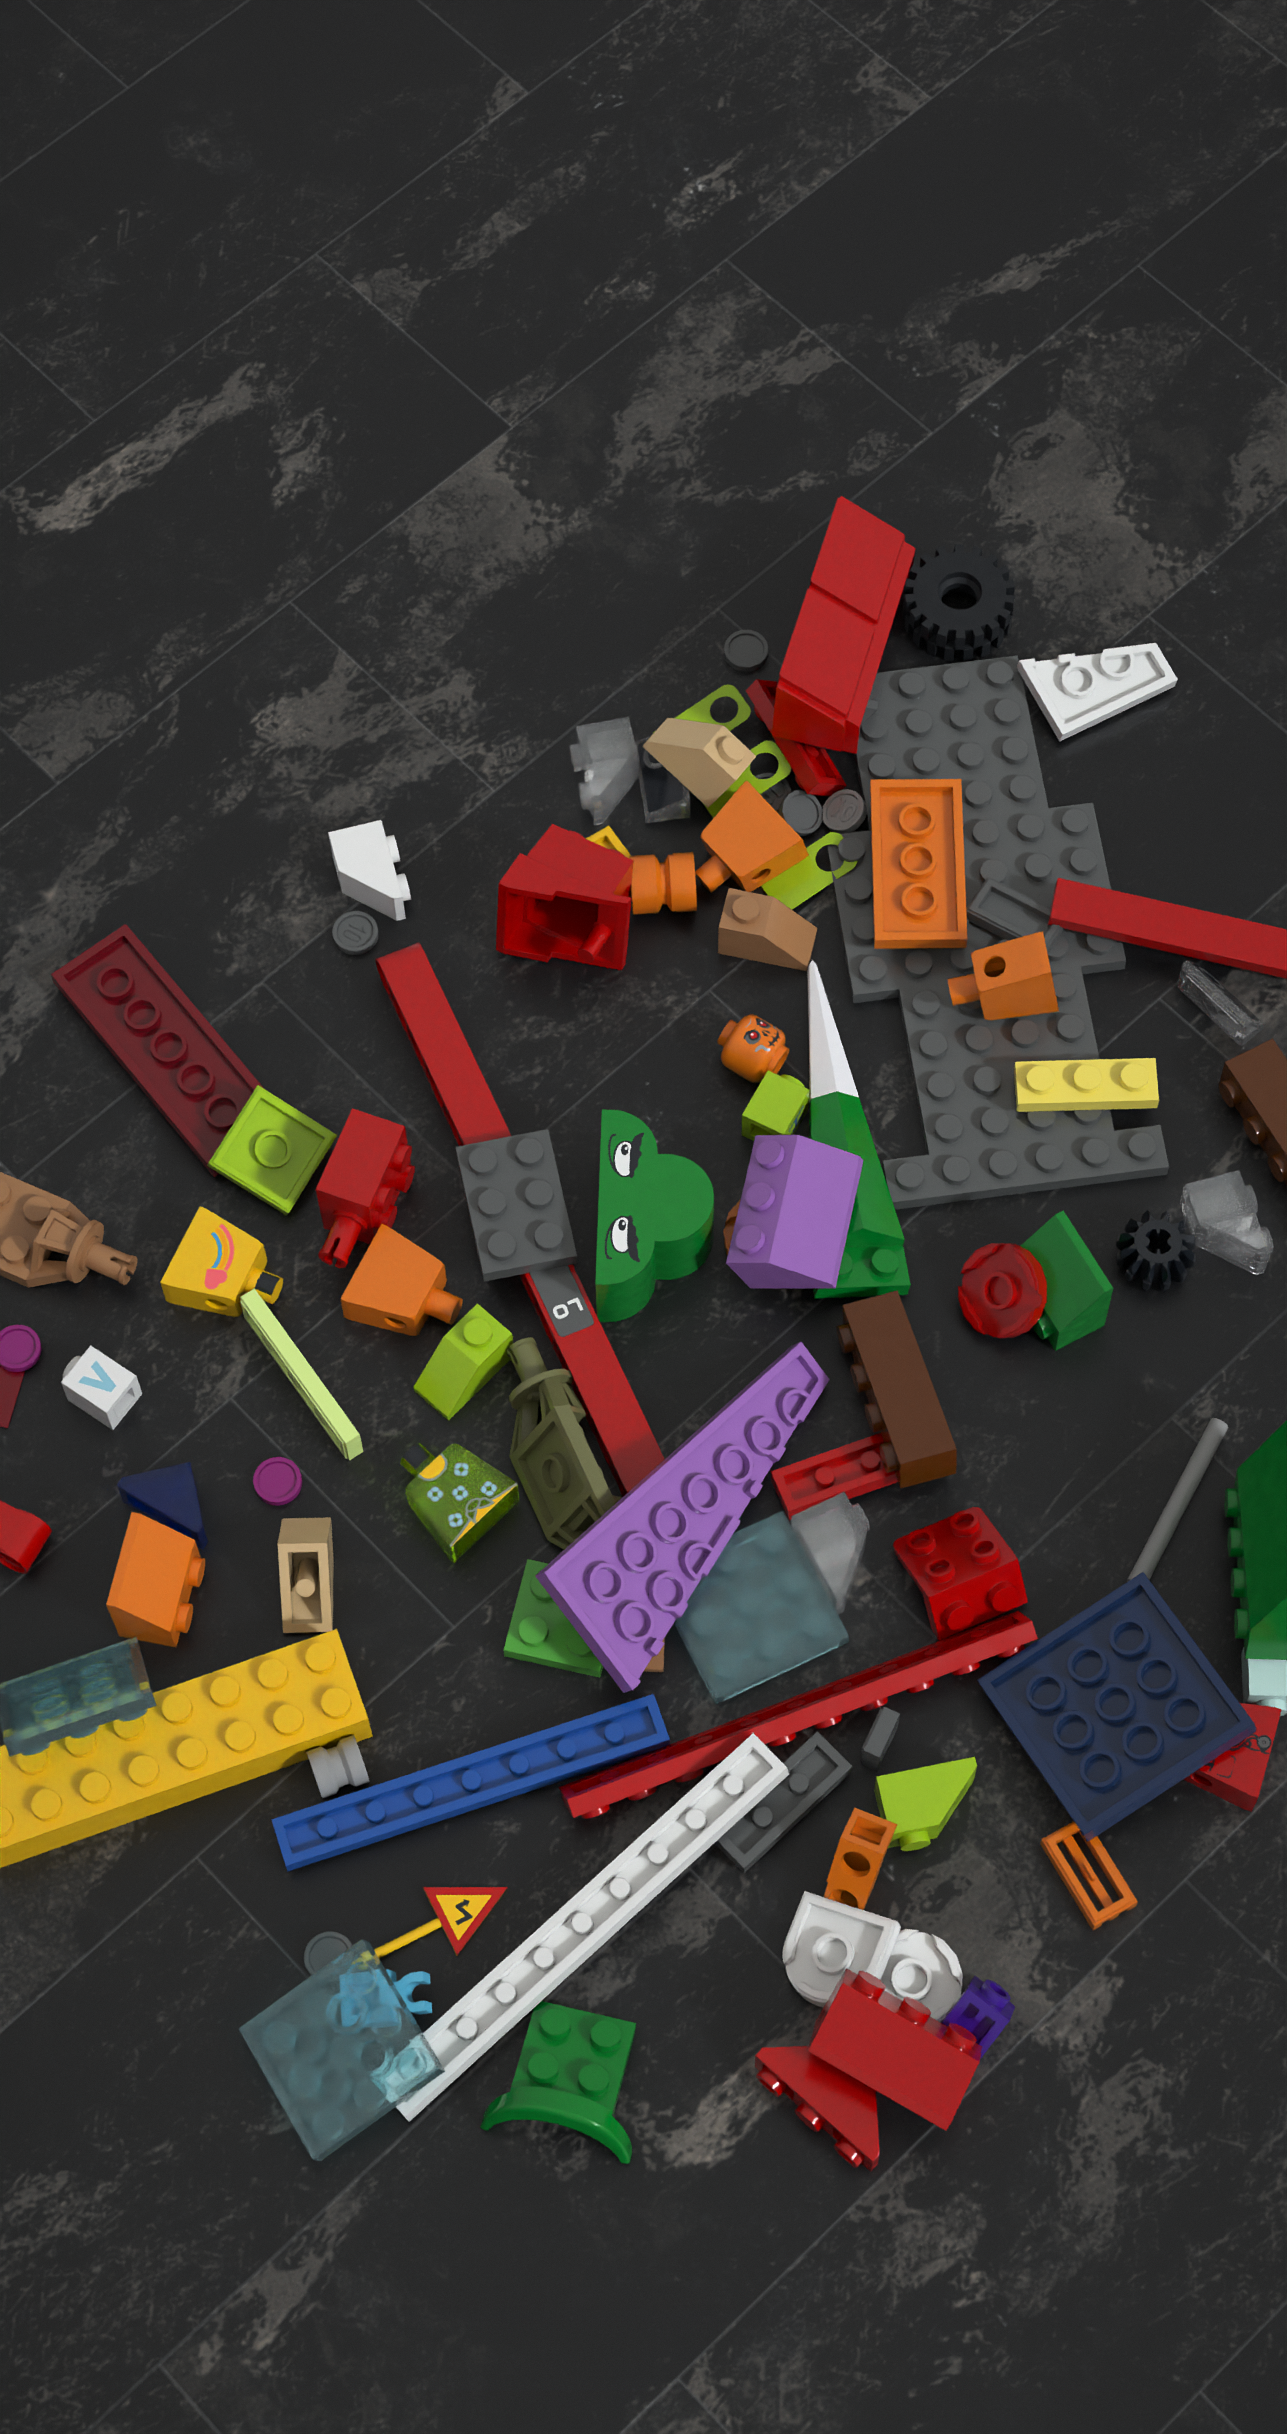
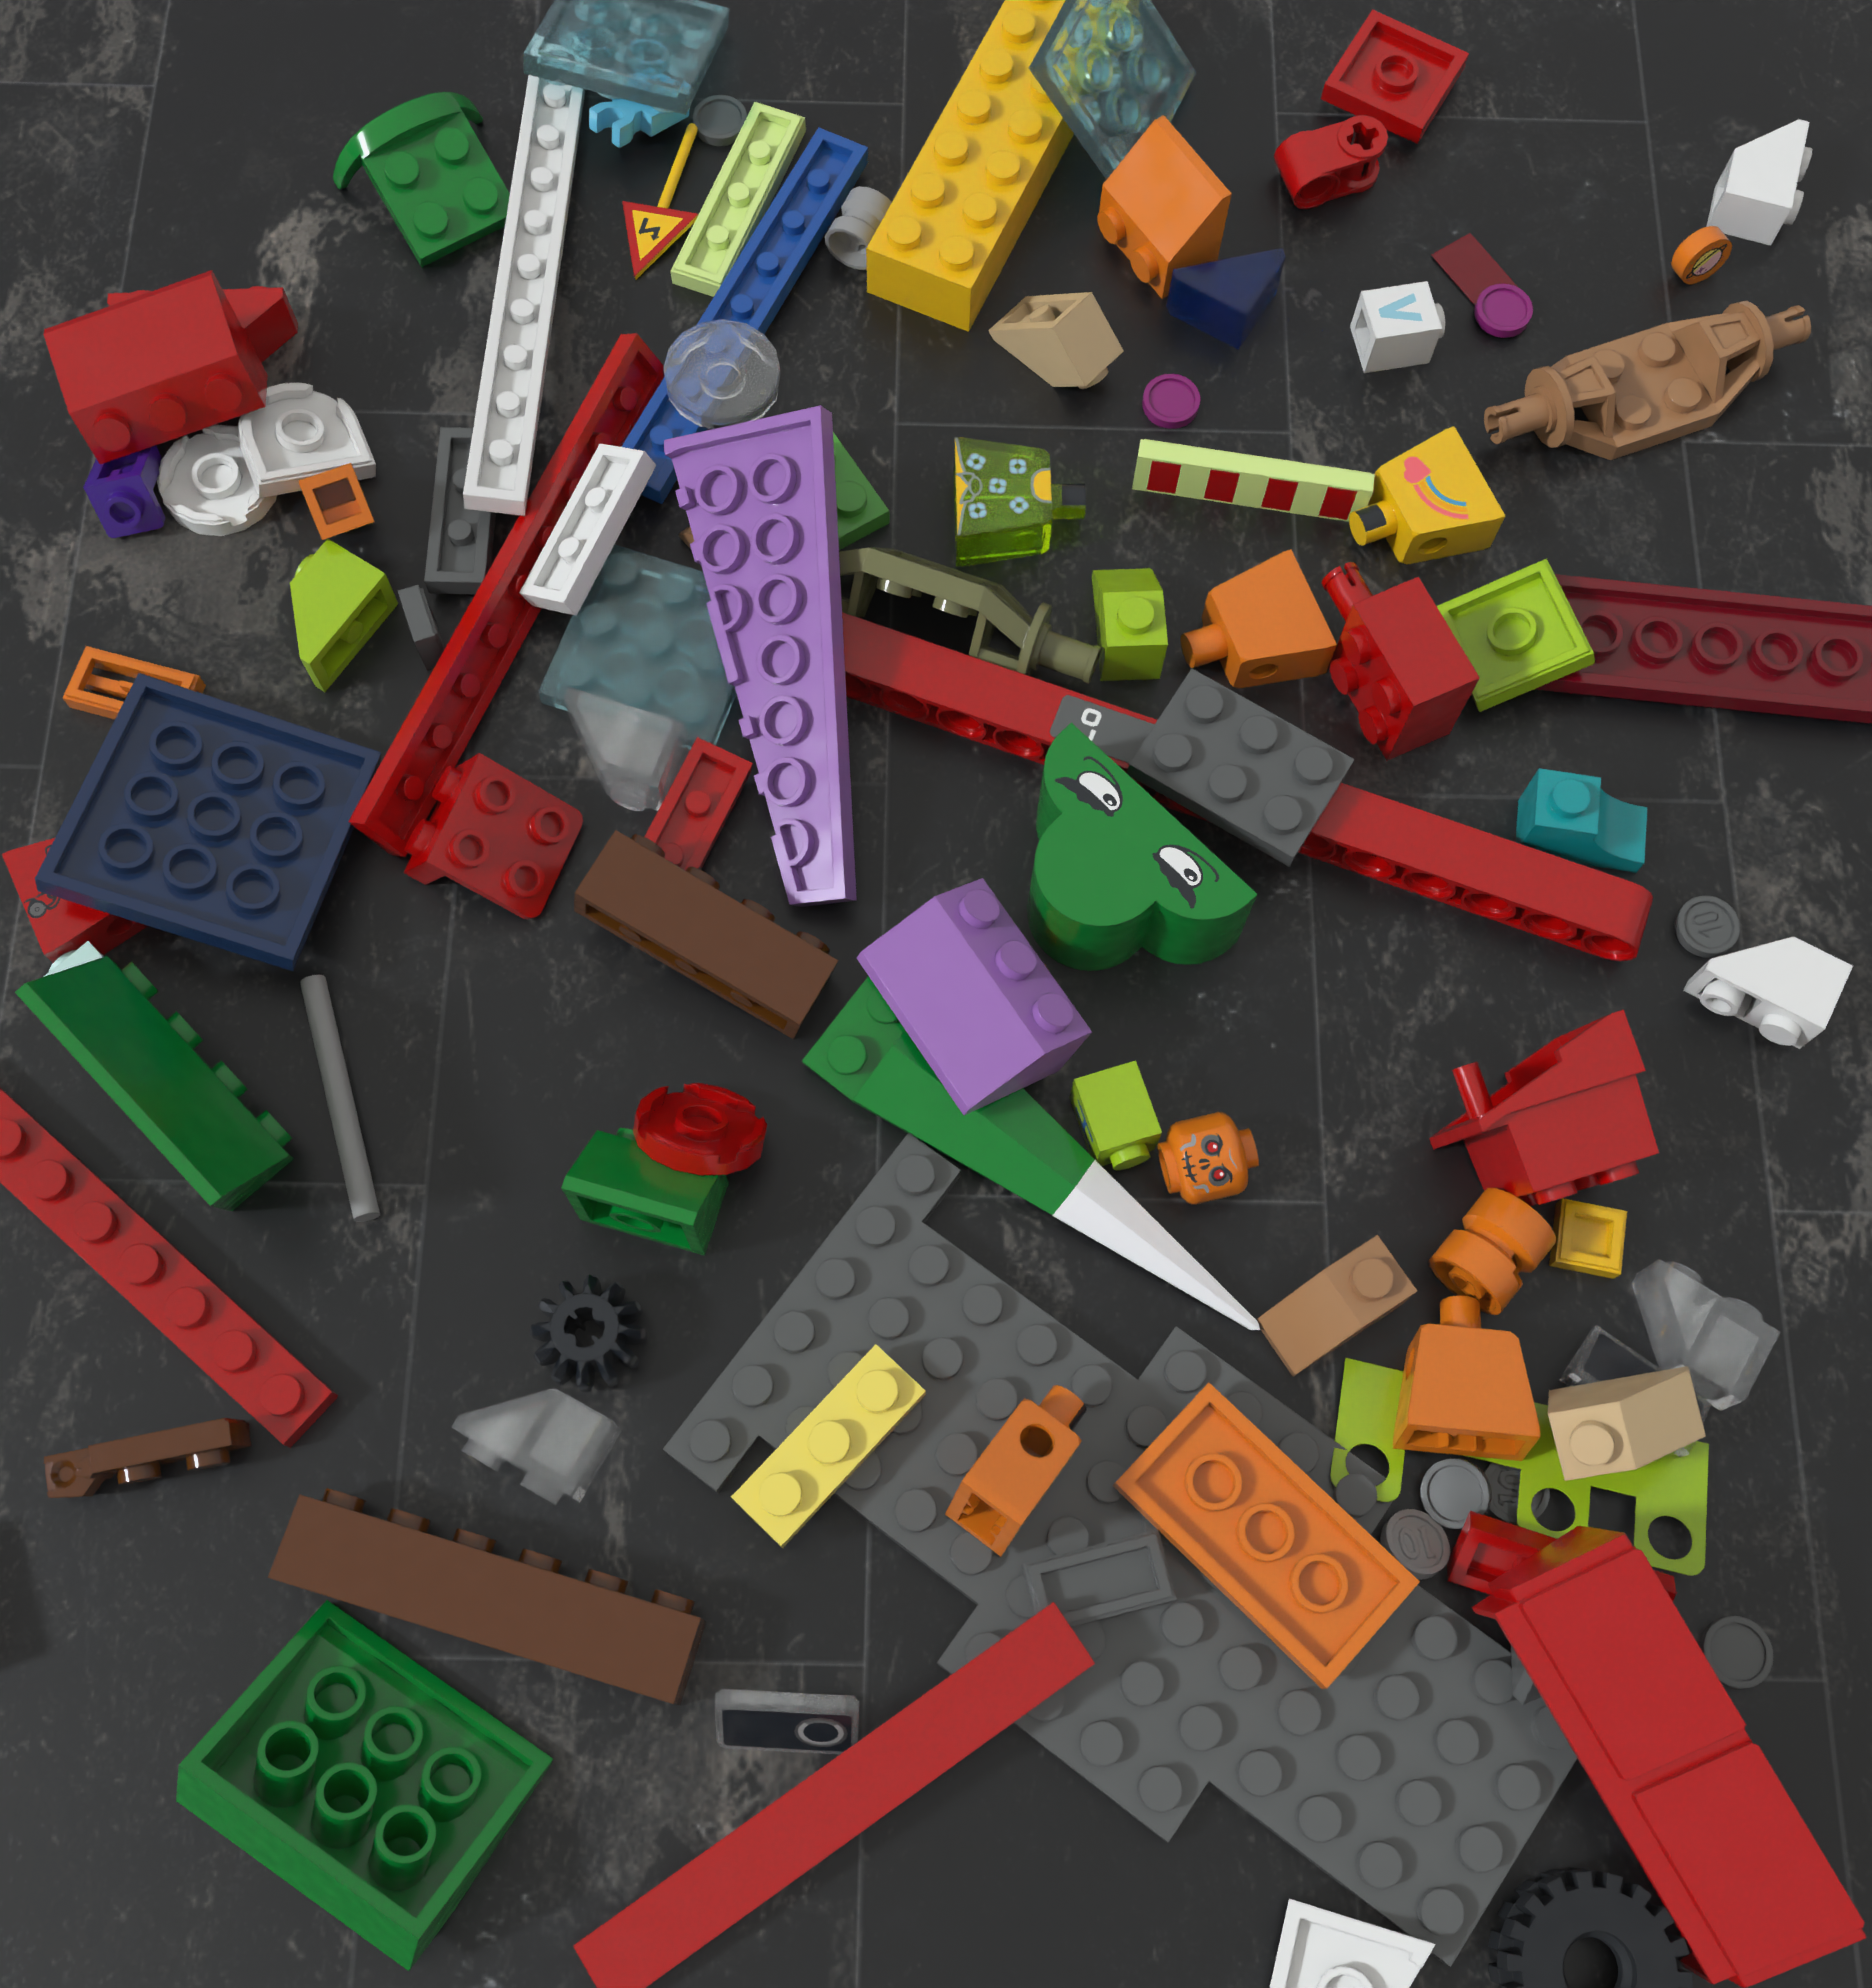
camera: 130 degrees right, 5 degrees up
(362, 1031) = (1581, 822): none -> teal arch
(383, 1878) = (738, 197): none -> yellowish green tile
(539, 1729) = (722, 373): none -> clear tile
(725, 1697) = (588, 529): none -> white plate

